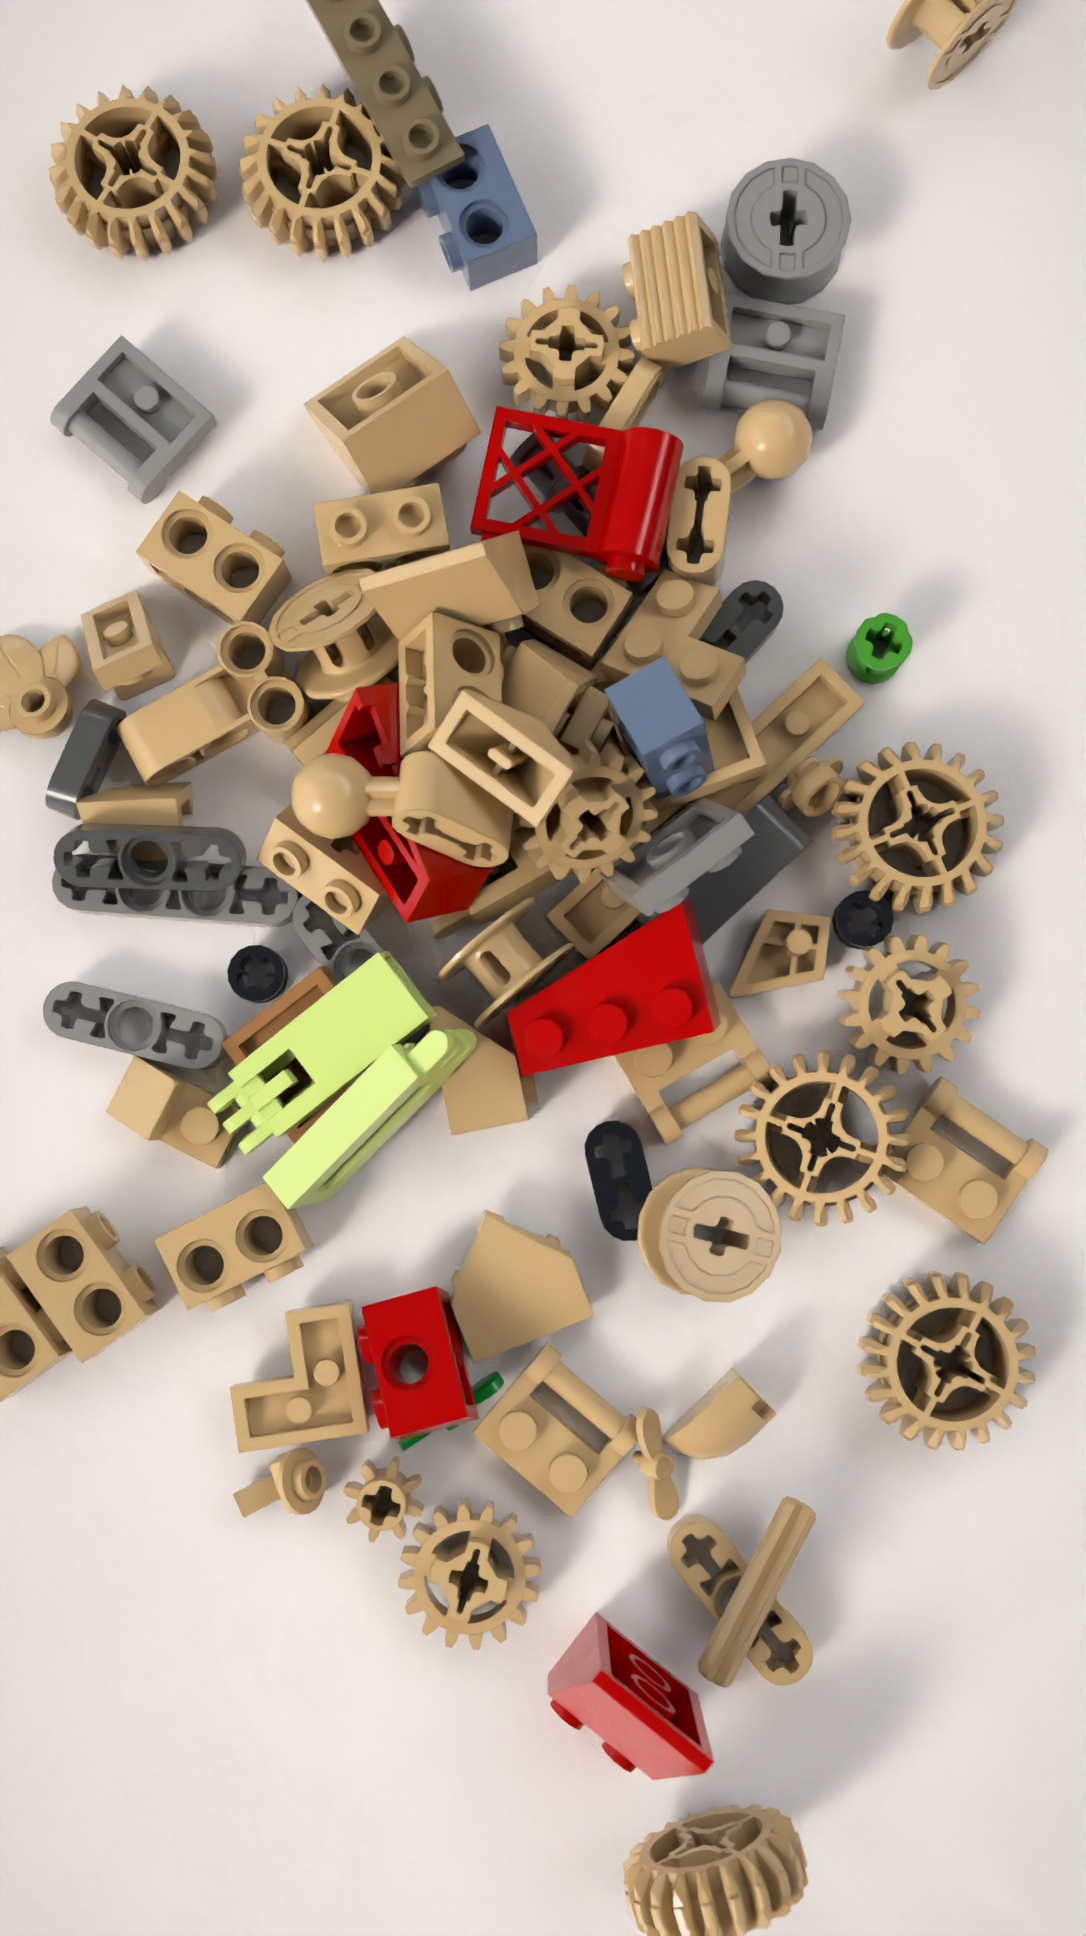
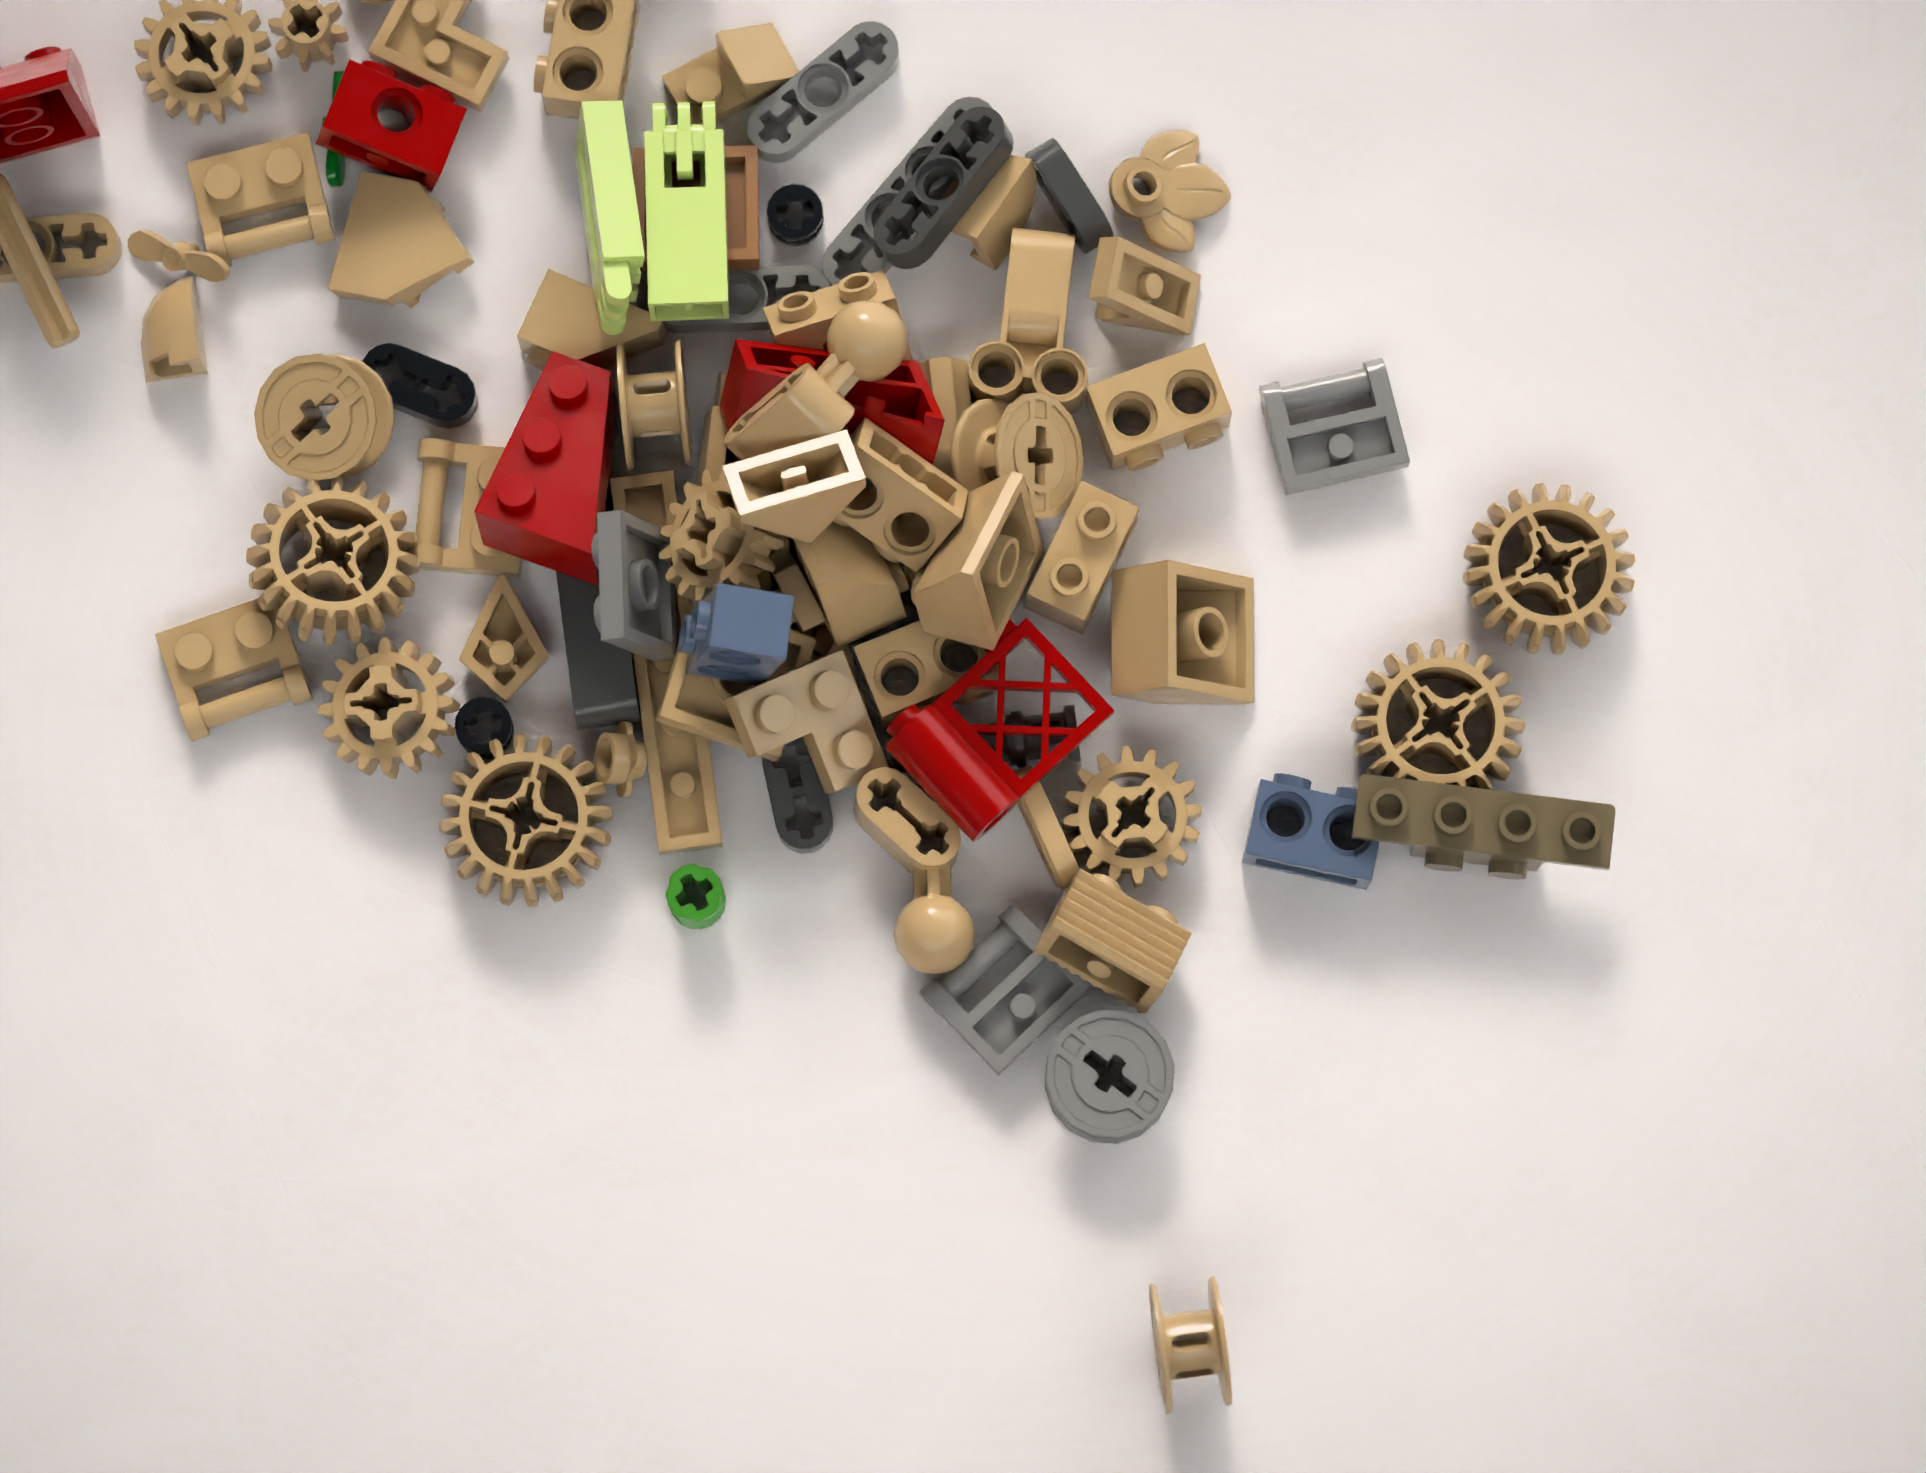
camera: 120 degrees right, 5 degrees down
(995, 1388) = (62, 547): tan gear -> none

